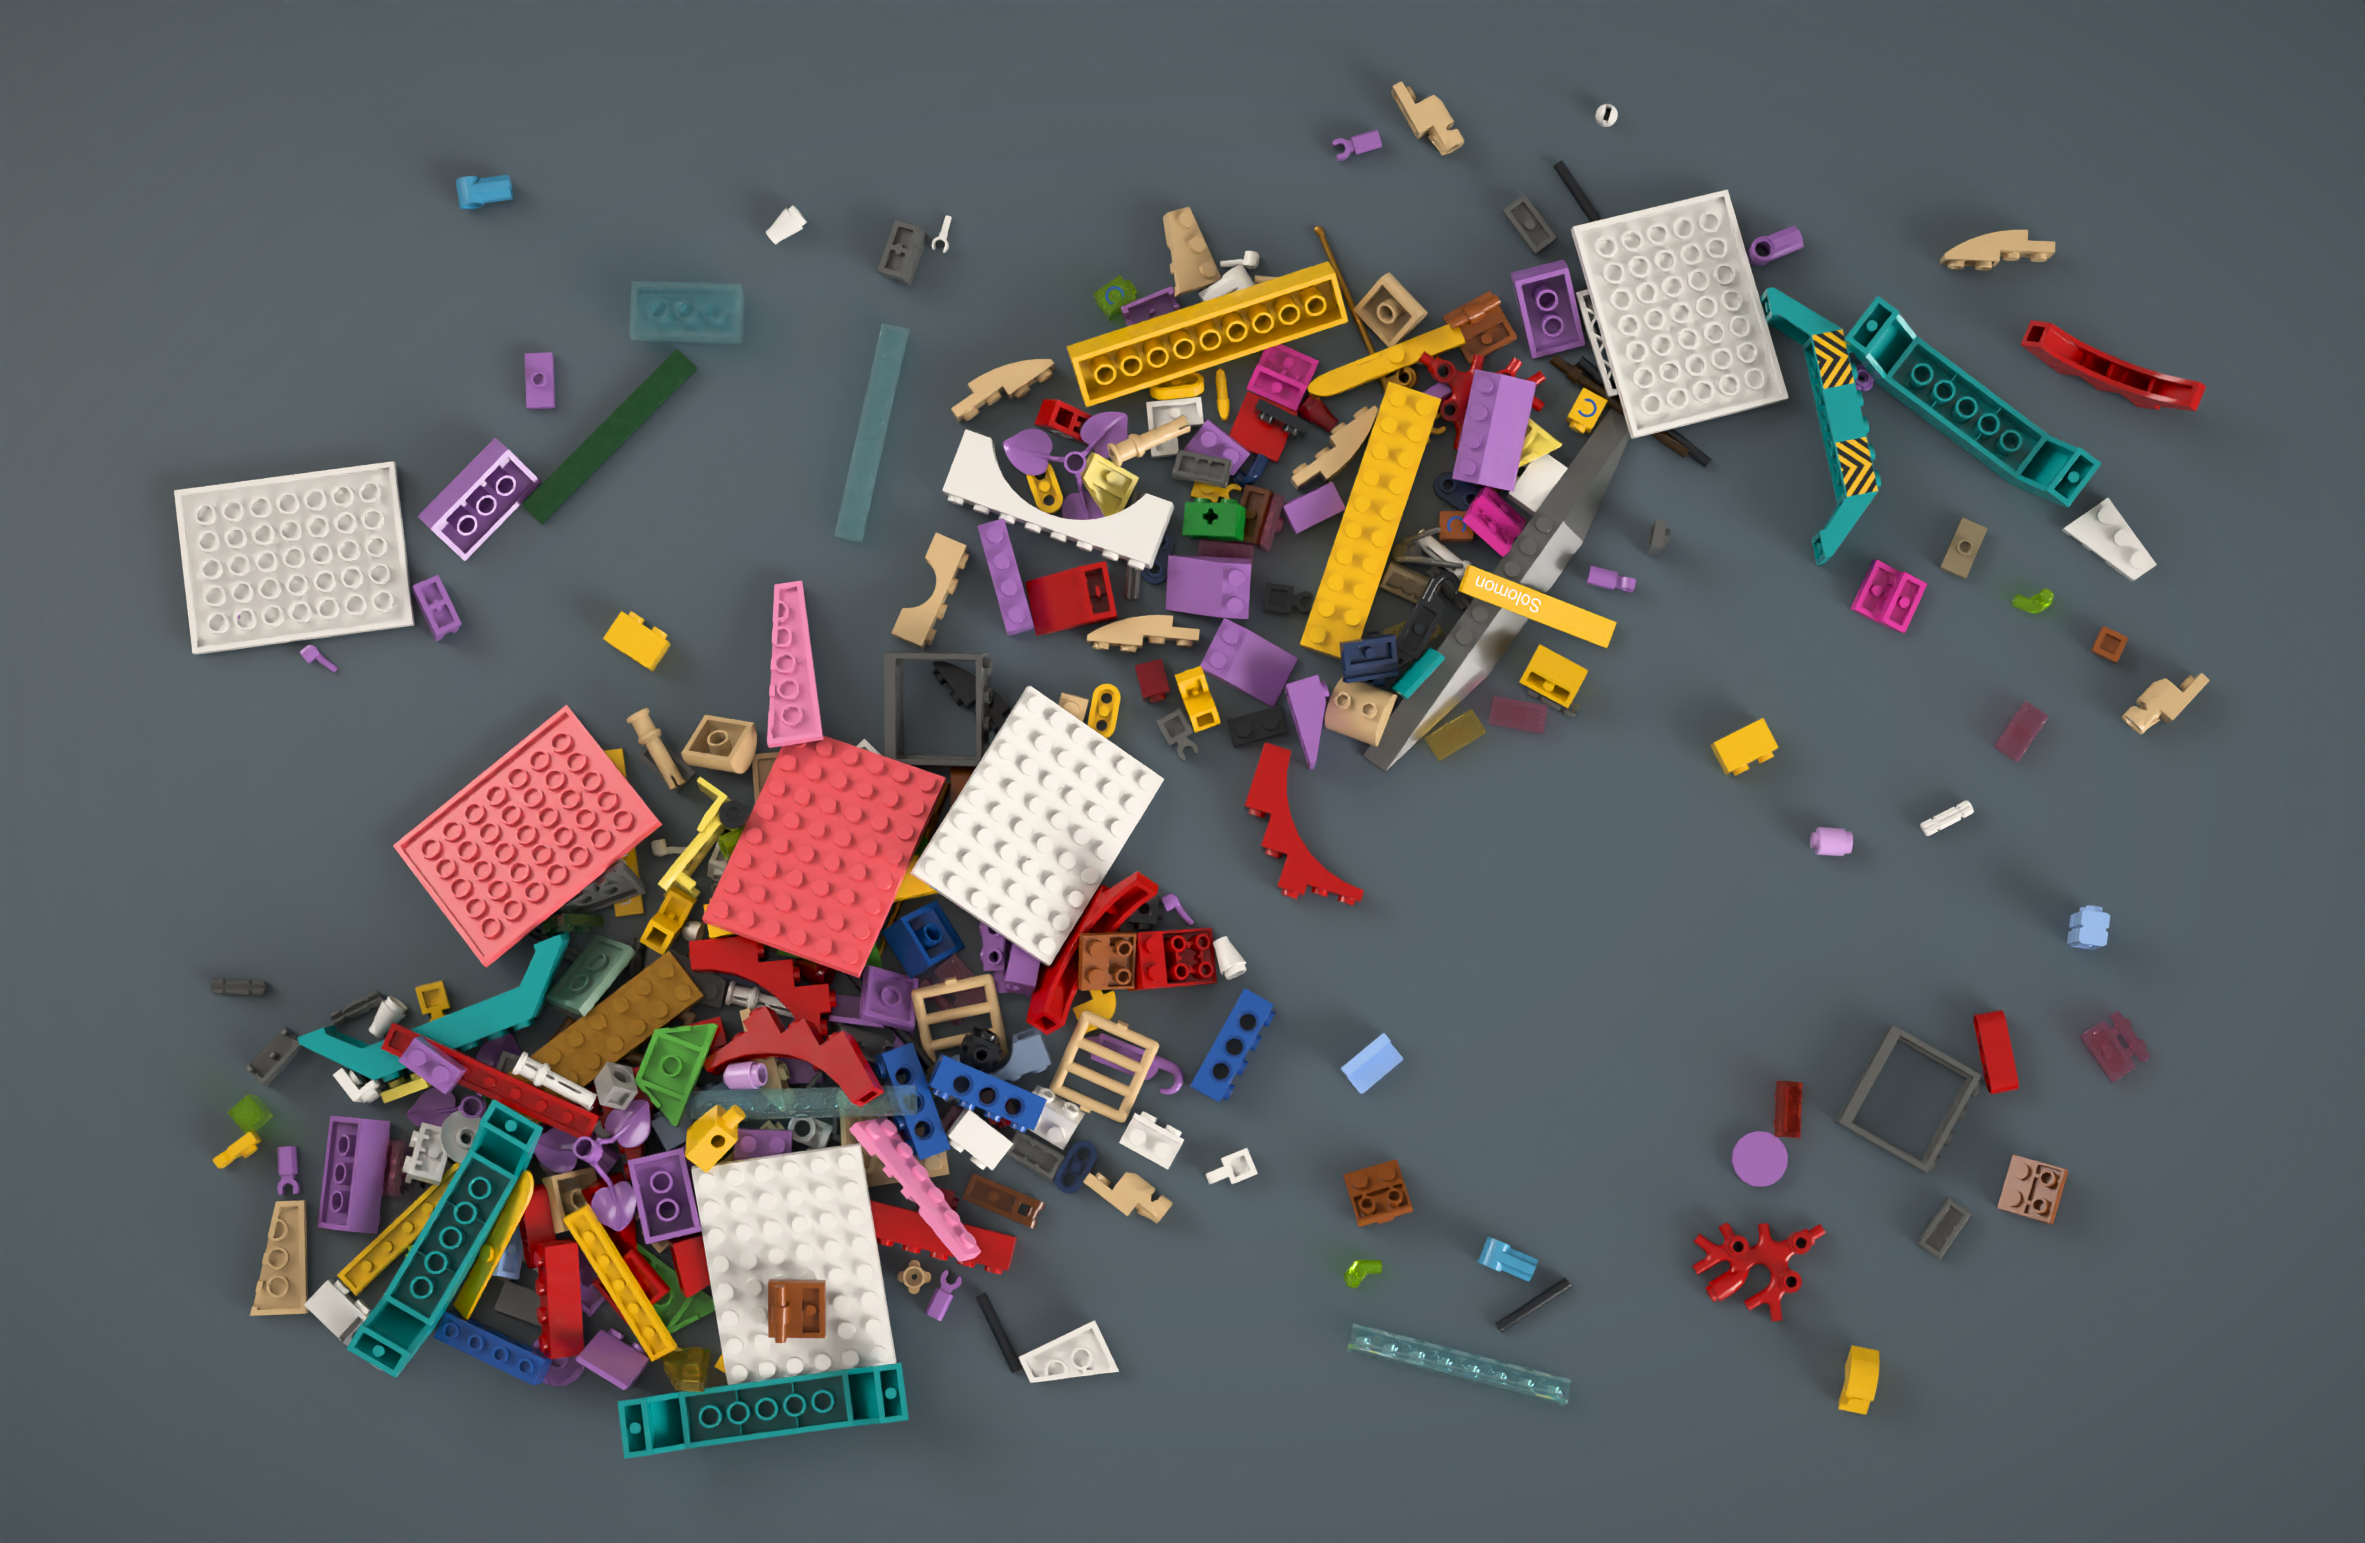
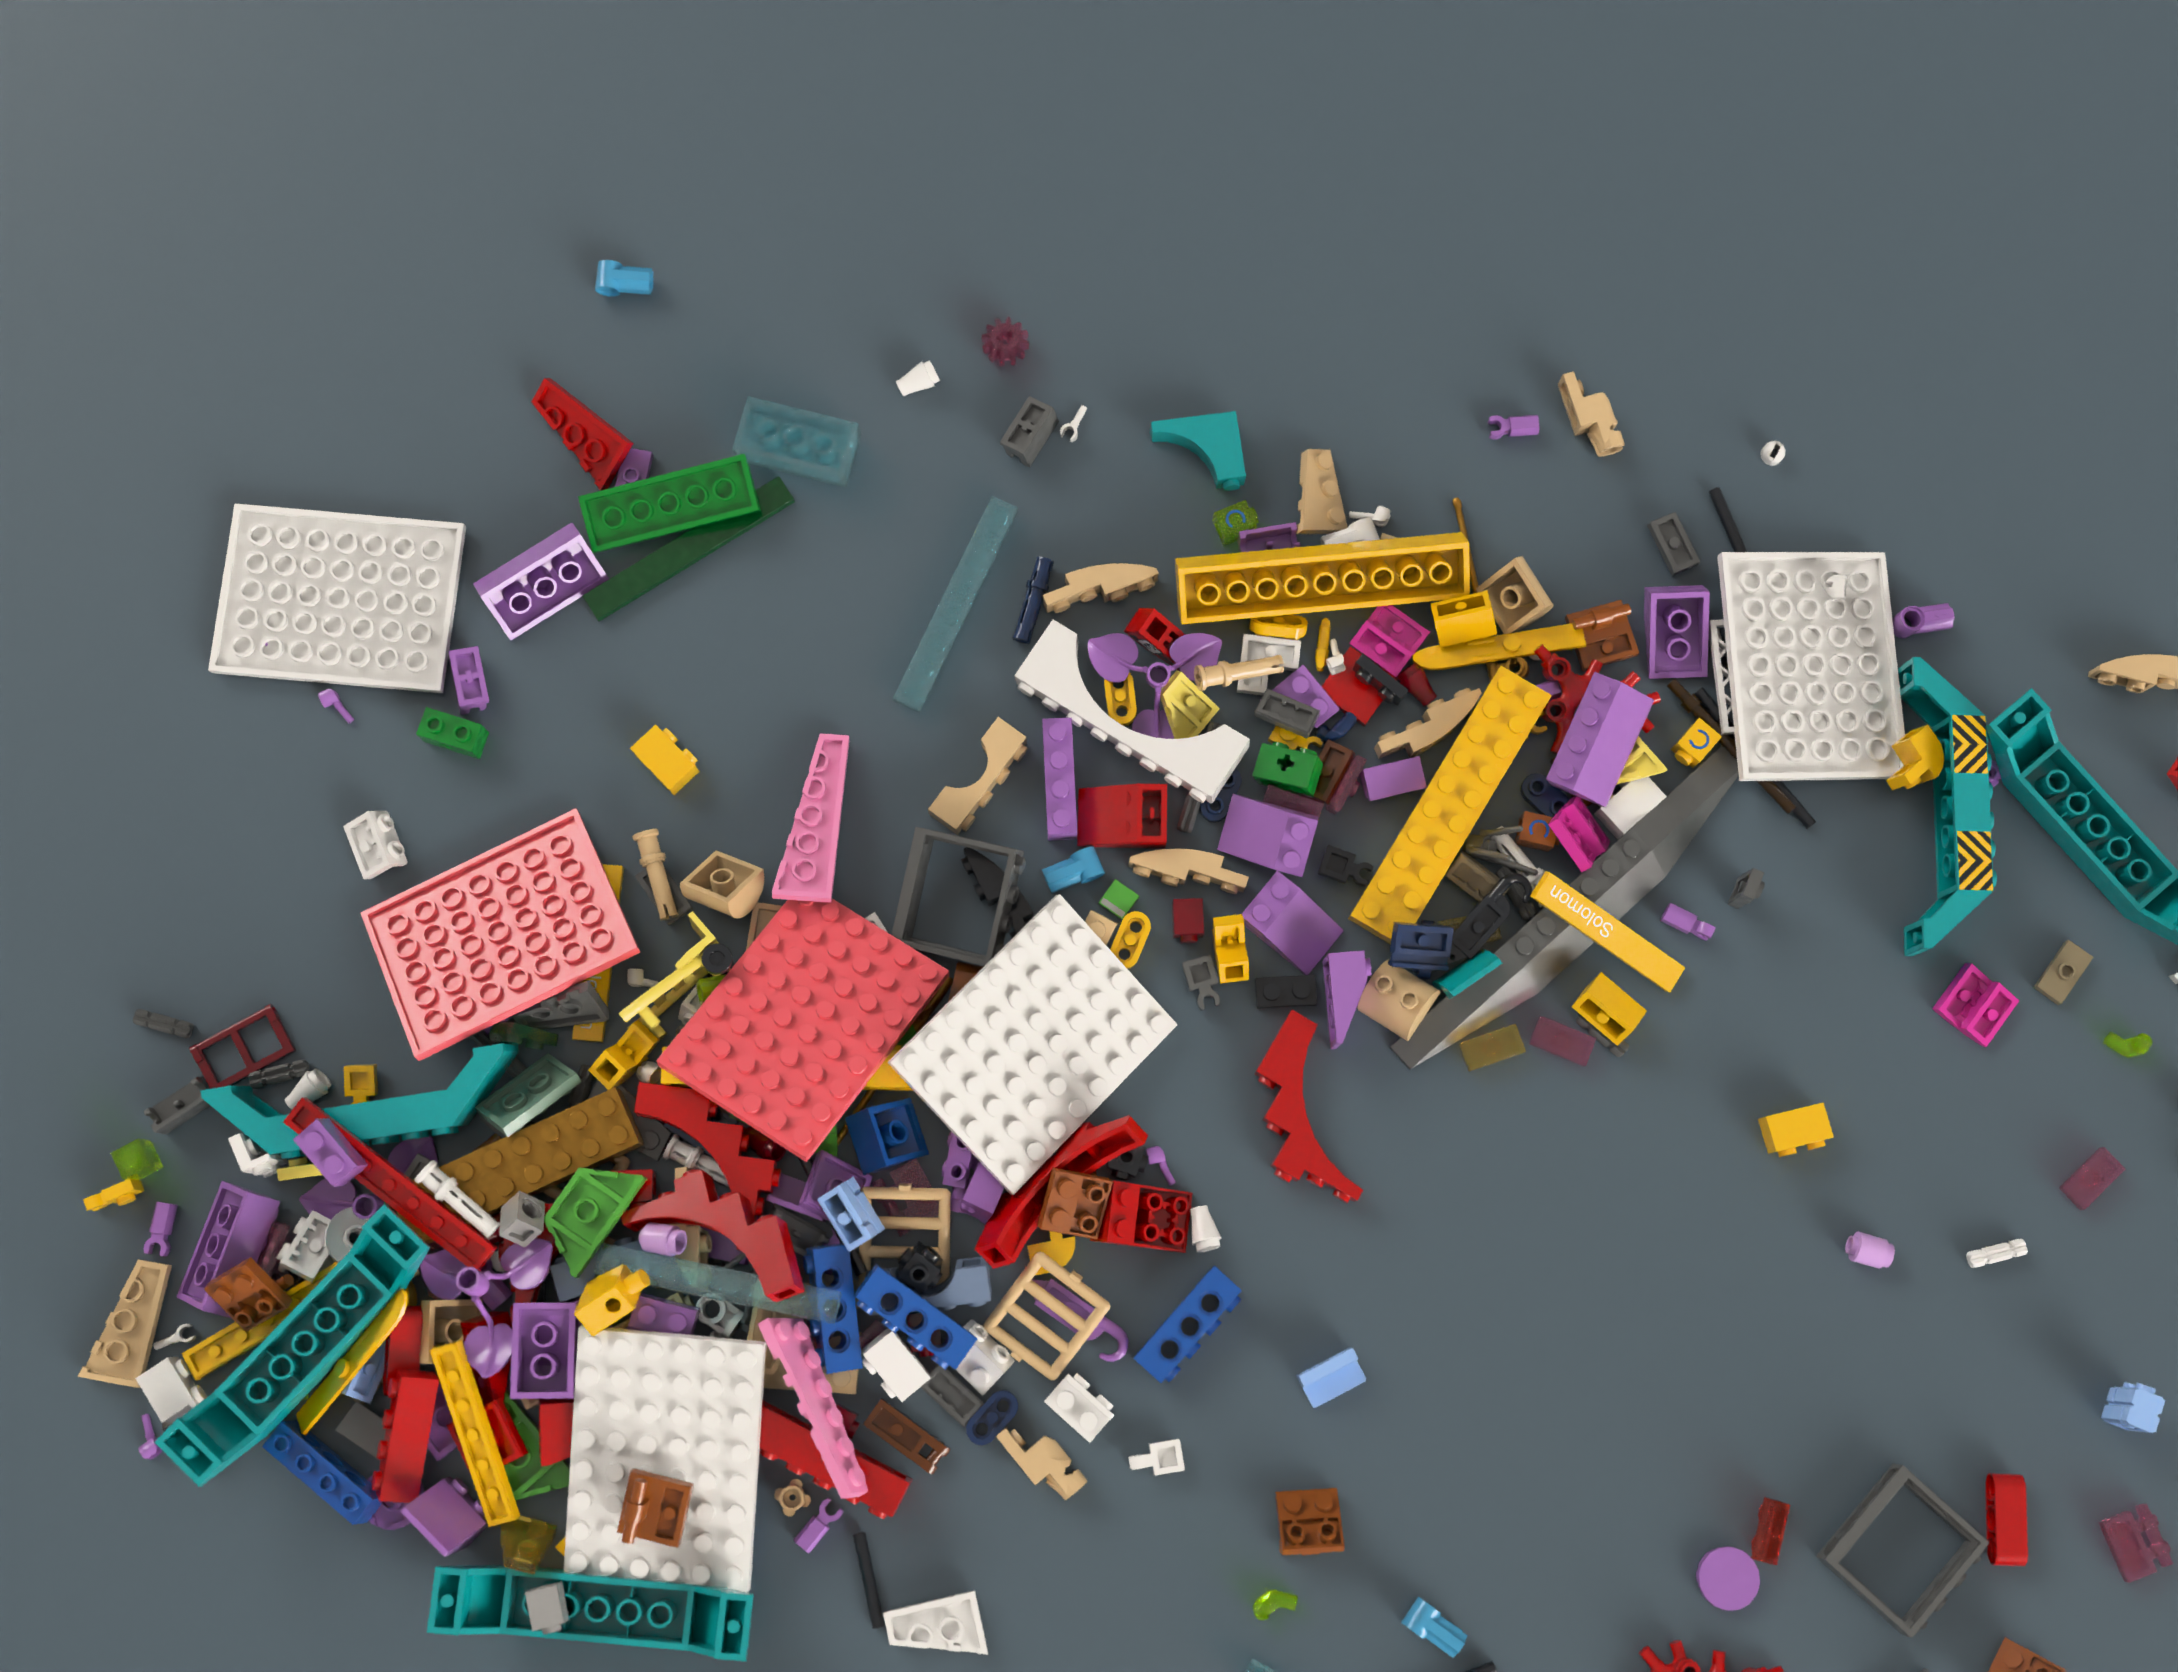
camera: 10 degrees right, 5 degrees down
(304, 979) = (233, 1031): none -> dark red window
(326, 1263) = (177, 1337): none -> white hand
(332, 1362) = (149, 1449): none -> medium lavender hand
(388, 1207) = (250, 1294): none -> dark orange plate
(389, 779) = (375, 843): none -> white bracket
(434, 661) = (452, 733): none -> green brick
(493, 353) = (584, 432): none -> red wing
(582, 399) = (669, 503): none -> green plate
(723, 1415) = (547, 1607): none -> light grey brick
(871, 170) = (1001, 351): none -> clear pink gear
(908, 1015) = (851, 1214): none -> light blue brick
(942, 419) = (1031, 606): none -> dark blue pin
(1043, 655) = (1080, 867): none -> dark azure piece
(1079, 223) = (1213, 439): none -> teal arch
(1085, 676) = (1118, 899): none -> bright green tile
(1237, 411) = (1335, 663): none -> white hand
(1347, 343) = (1463, 619): none -> yellow brick
(1688, 234) = (1839, 586): none -> white hinge
(1795, 378) = (1921, 758): none -> yellow brick

